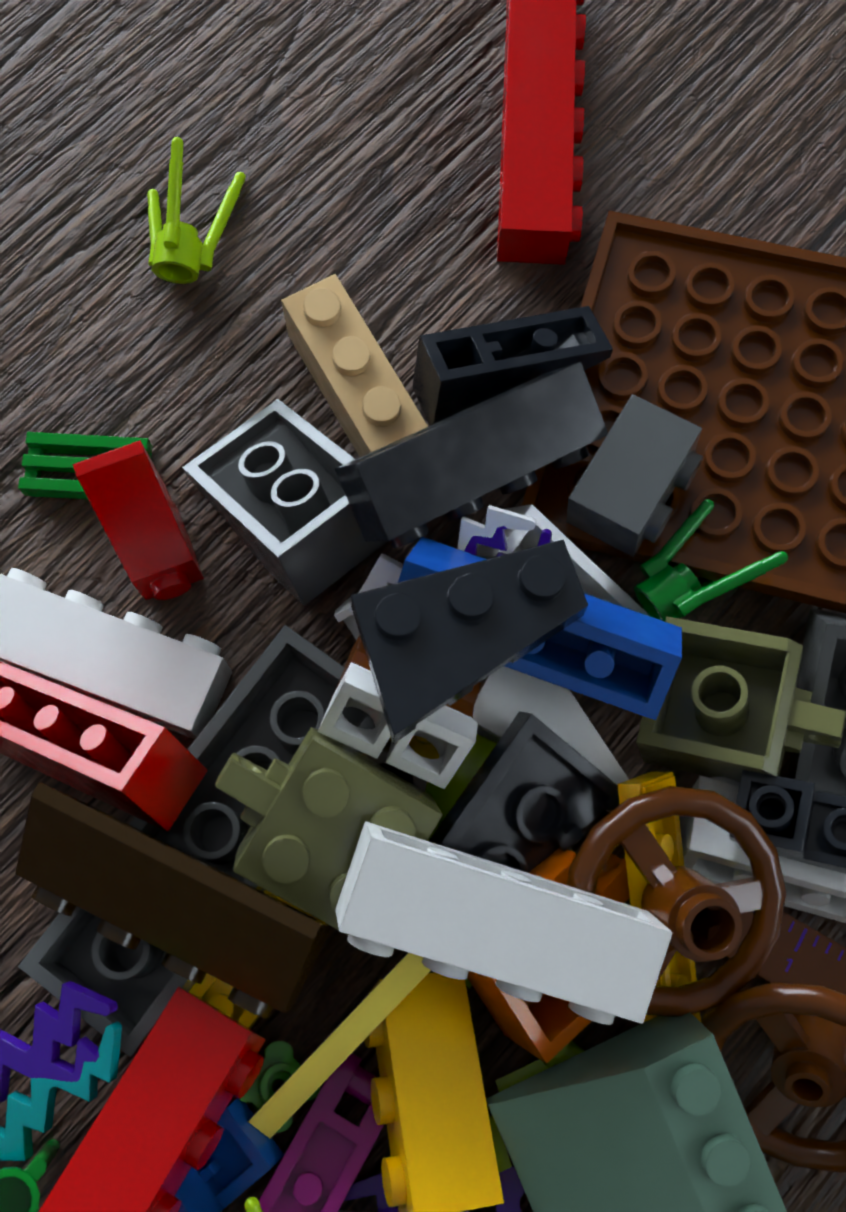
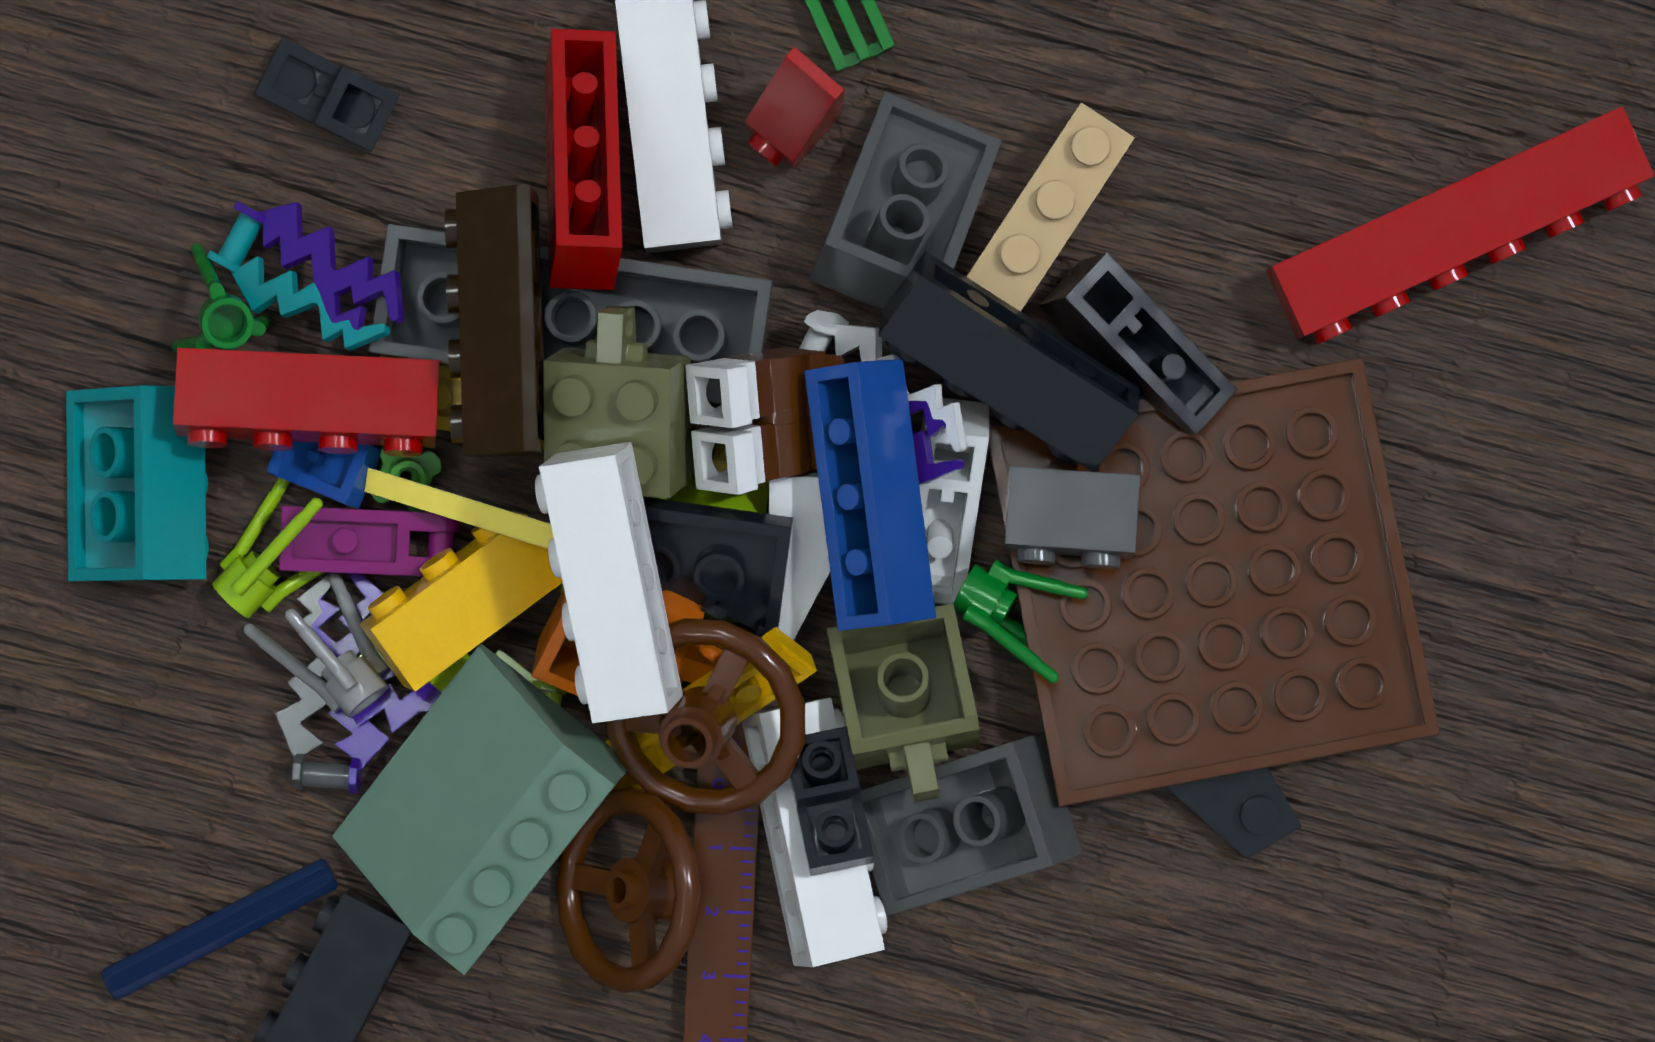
camera: 65 degrees right, 15 degrees up
(459, 625) = (819, 436): black wing -> none

